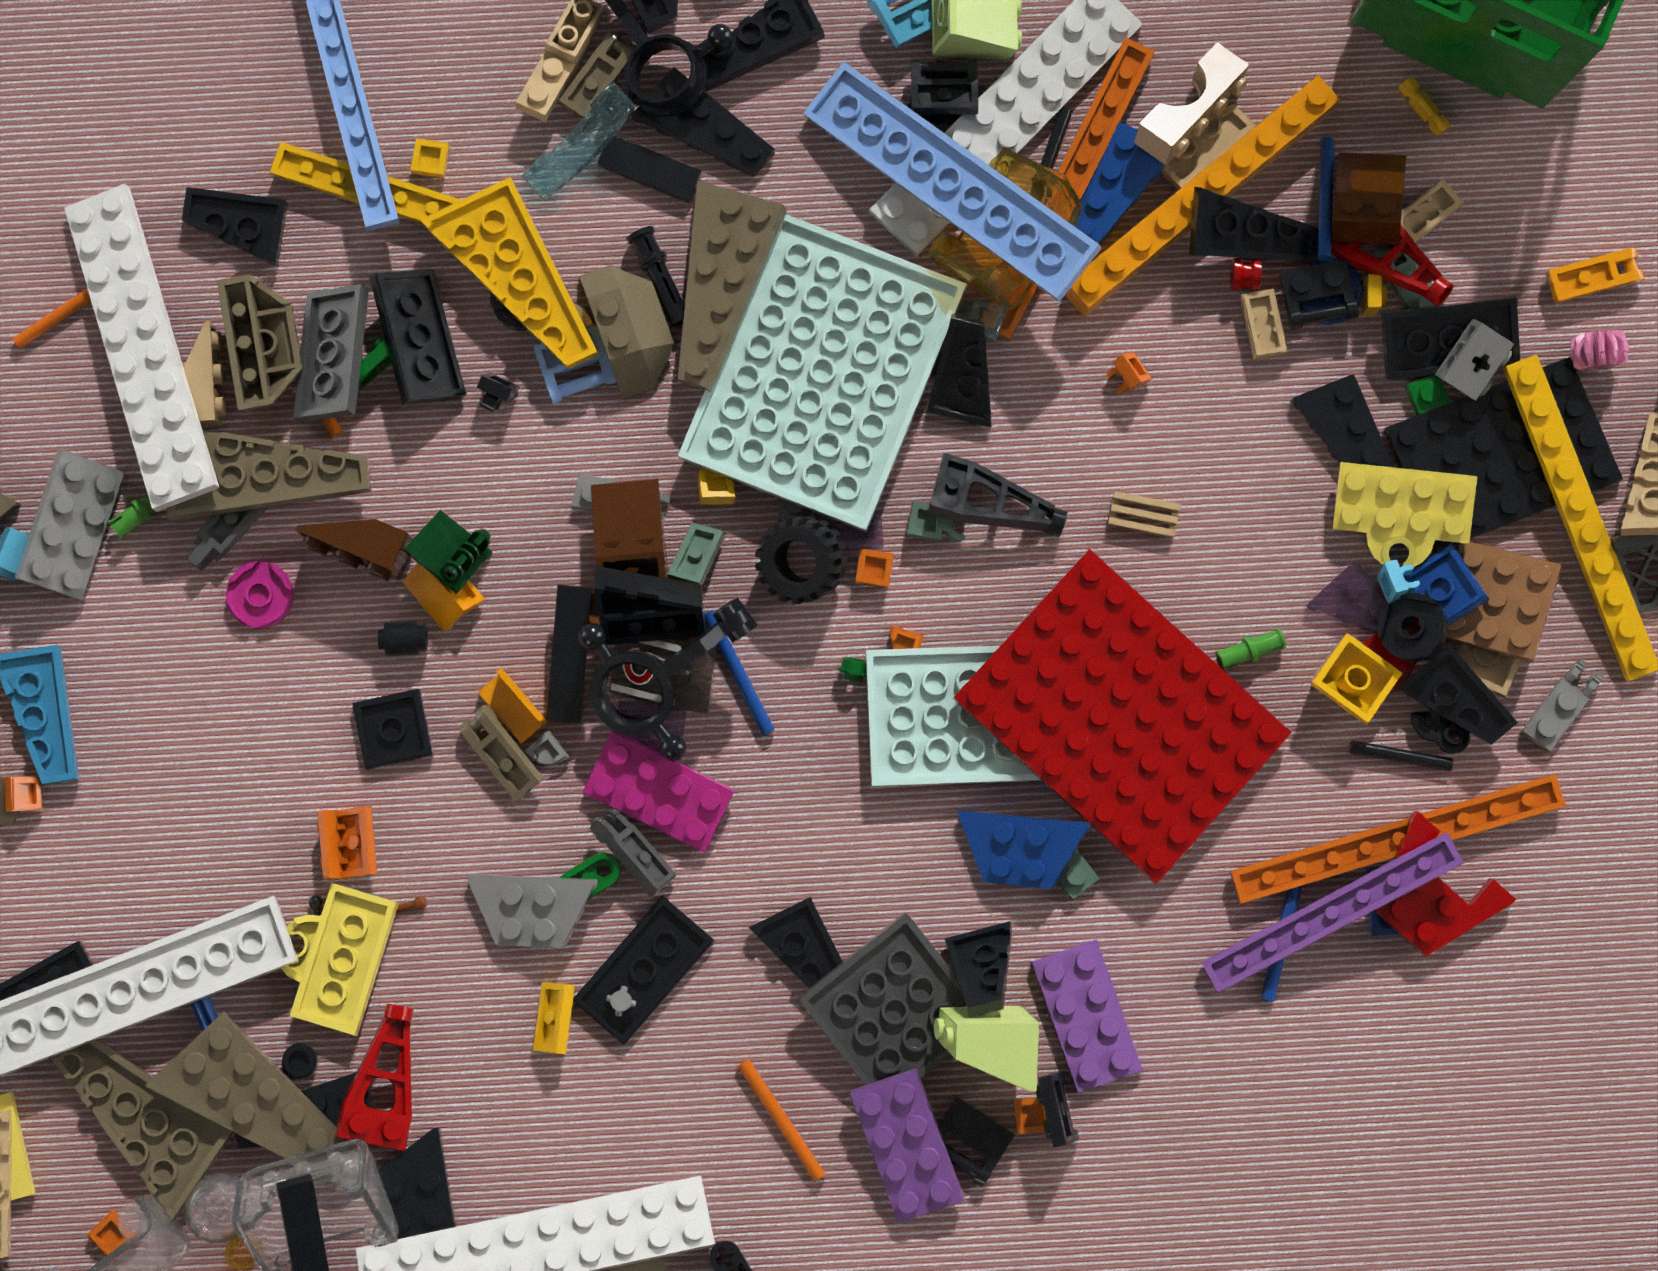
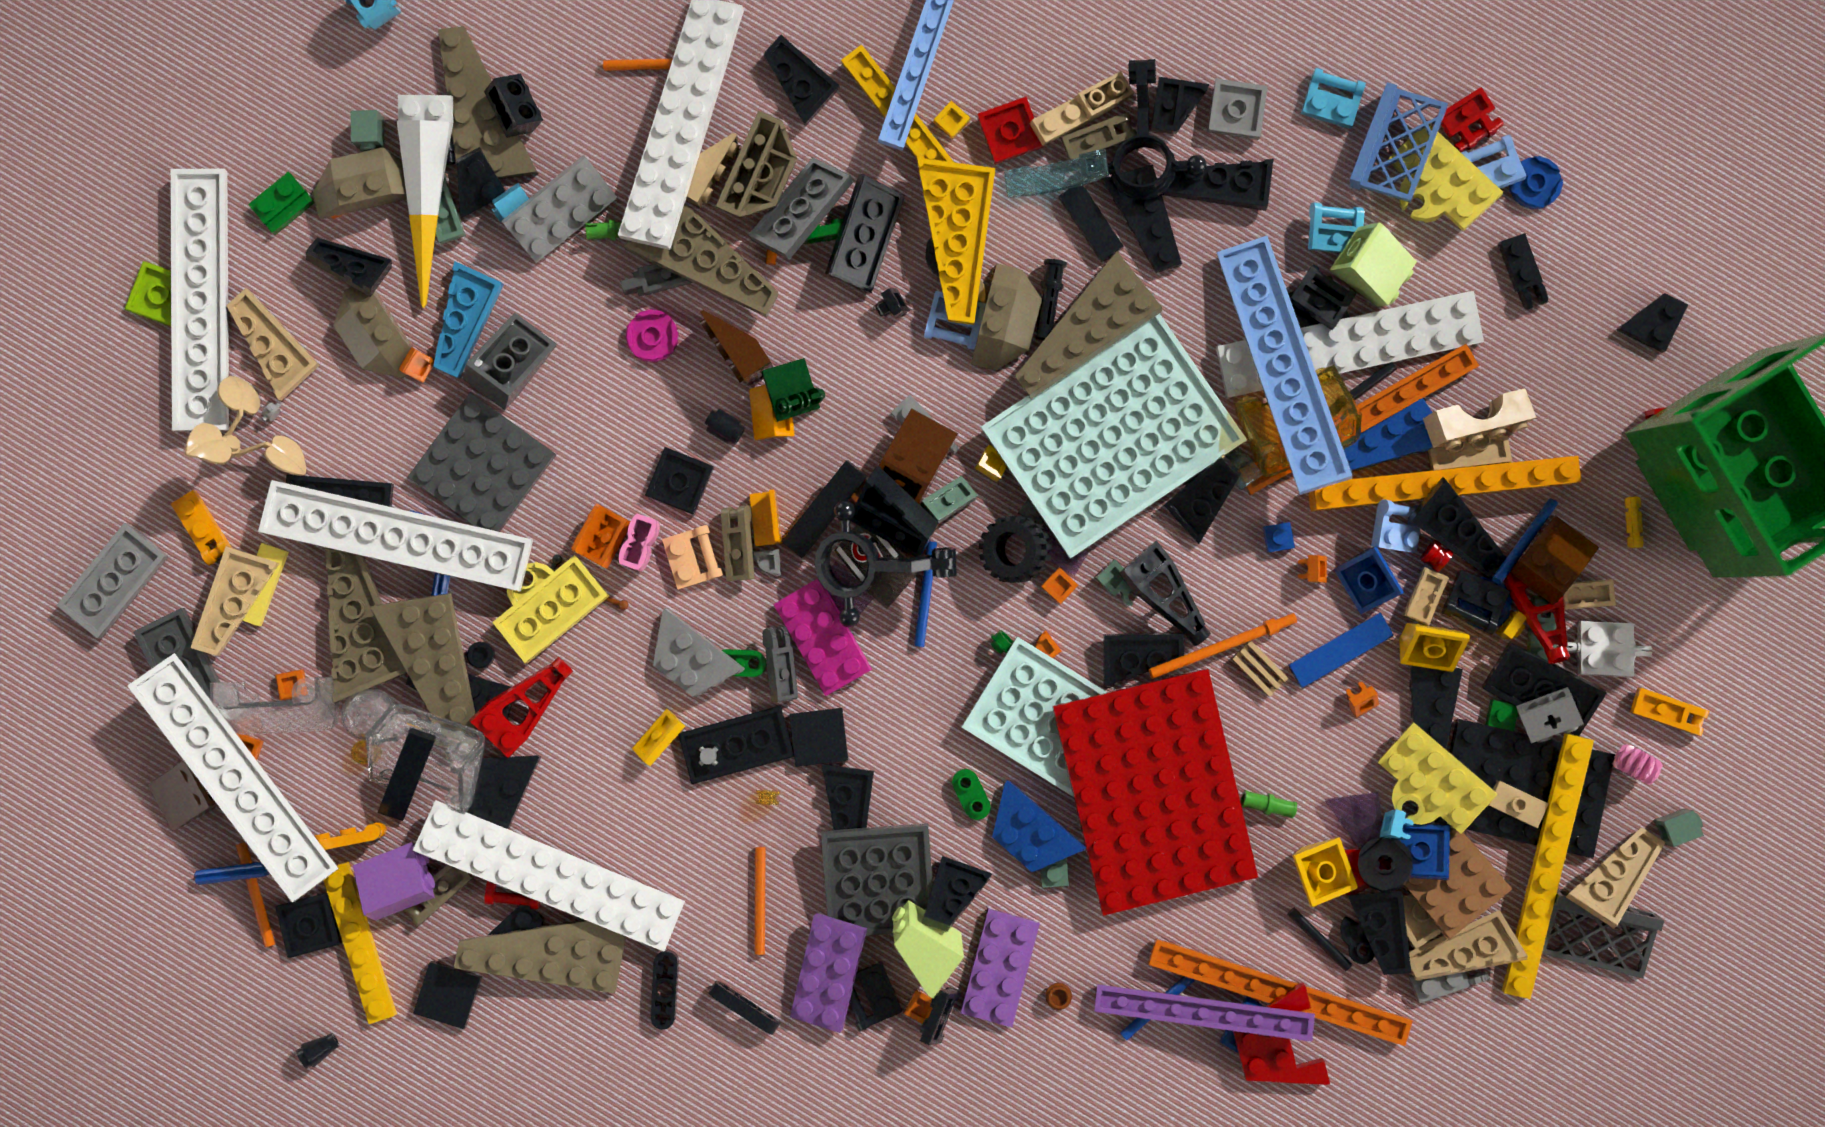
camera: 35 degrees right, 5 degrees up
(120, 724) = (508, 361): none -> dark grey slope
(165, 855) = (482, 465): none -> dark grey plate
(394, 830) = (641, 535): none -> bright pink brick
(453, 810) = (684, 561): none -> light nougat plate
(498, 129) = (1009, 130): none -> red plate
(714, 1002) = (767, 797): none -> clear yellow bush
(727, 901) = (819, 737): none -> black tile
(842, 1246) = (744, 1007): none -> black beam
(930, 852) = (971, 794): none -> green plate
(1006, 583) = (1136, 653): none -> black wing
(1069, 365) = (1278, 537): none -> blue plate
(1124, 466) = (1268, 628): none -> orange bar
(1169, 1003) = (1058, 996): none -> dark orange plate
(1187, 281) = (1395, 535): none -> light blue plate
(1193, 346) = (1368, 580): none -> blue slope
(1214, 439) = (1340, 650): none -> blue tile
(1274, 474) = (1363, 701): none -> orange tile
(1305, 370) = (1431, 646): none -> yellow slope
(1486, 254) = (1606, 649): none -> white plate
(1506, 473) = (1518, 804): none -> tan plate
(1564, 654) = (1477, 946): none -> tan wing

